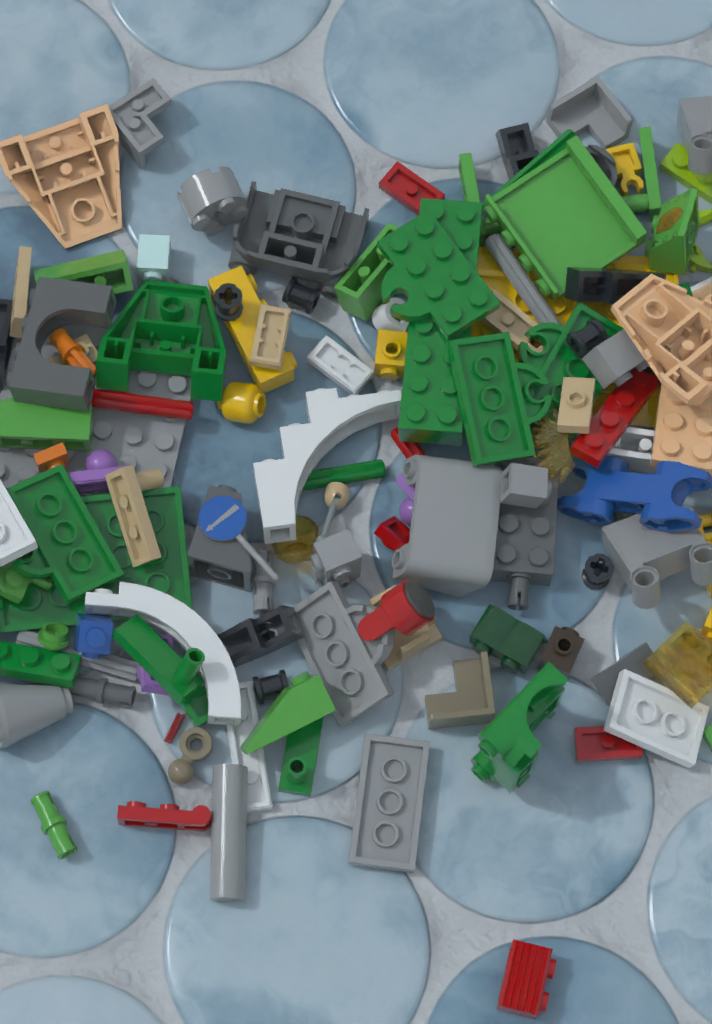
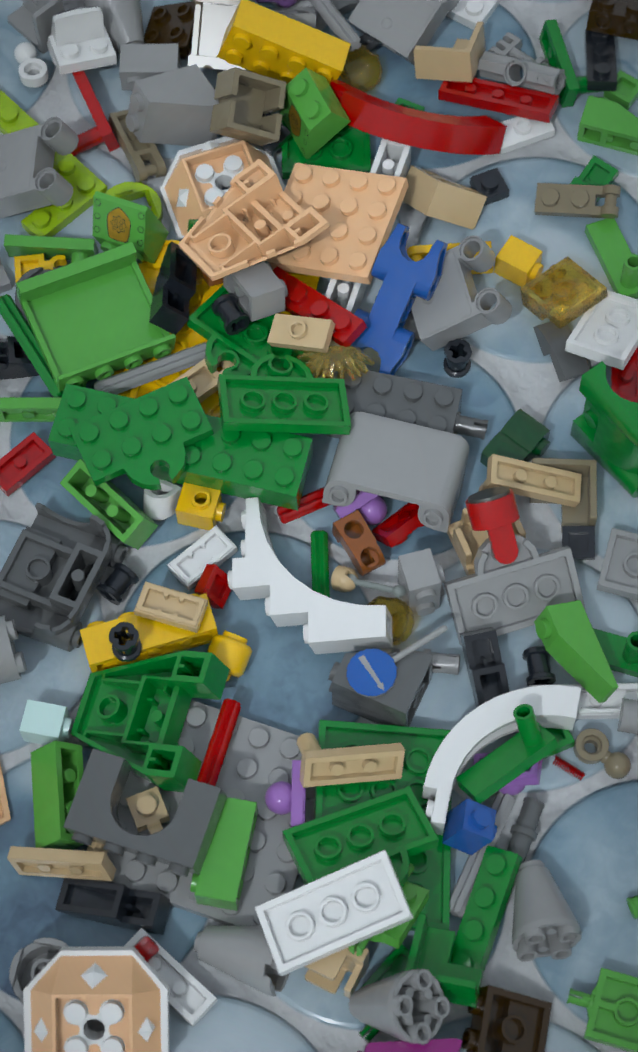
camera: 75 degrees left, 5 degrees down
(51, 457) = (269, 848): orange plate -> none
(54, 636) = (464, 869): bright green plate -> none
(72, 353) = (154, 807): orange axle -> none
(309, 377) = (215, 585): none -> red plate
(375, 503) = (358, 542): none -> dark orange leg
(409, 711) = (580, 540): none -> black plate
(462, 655) = (533, 480): none -> tan piece
(525, 485) = (378, 383): light grey brick -> none
(562, 649) = (535, 399): dark brown brick -> none

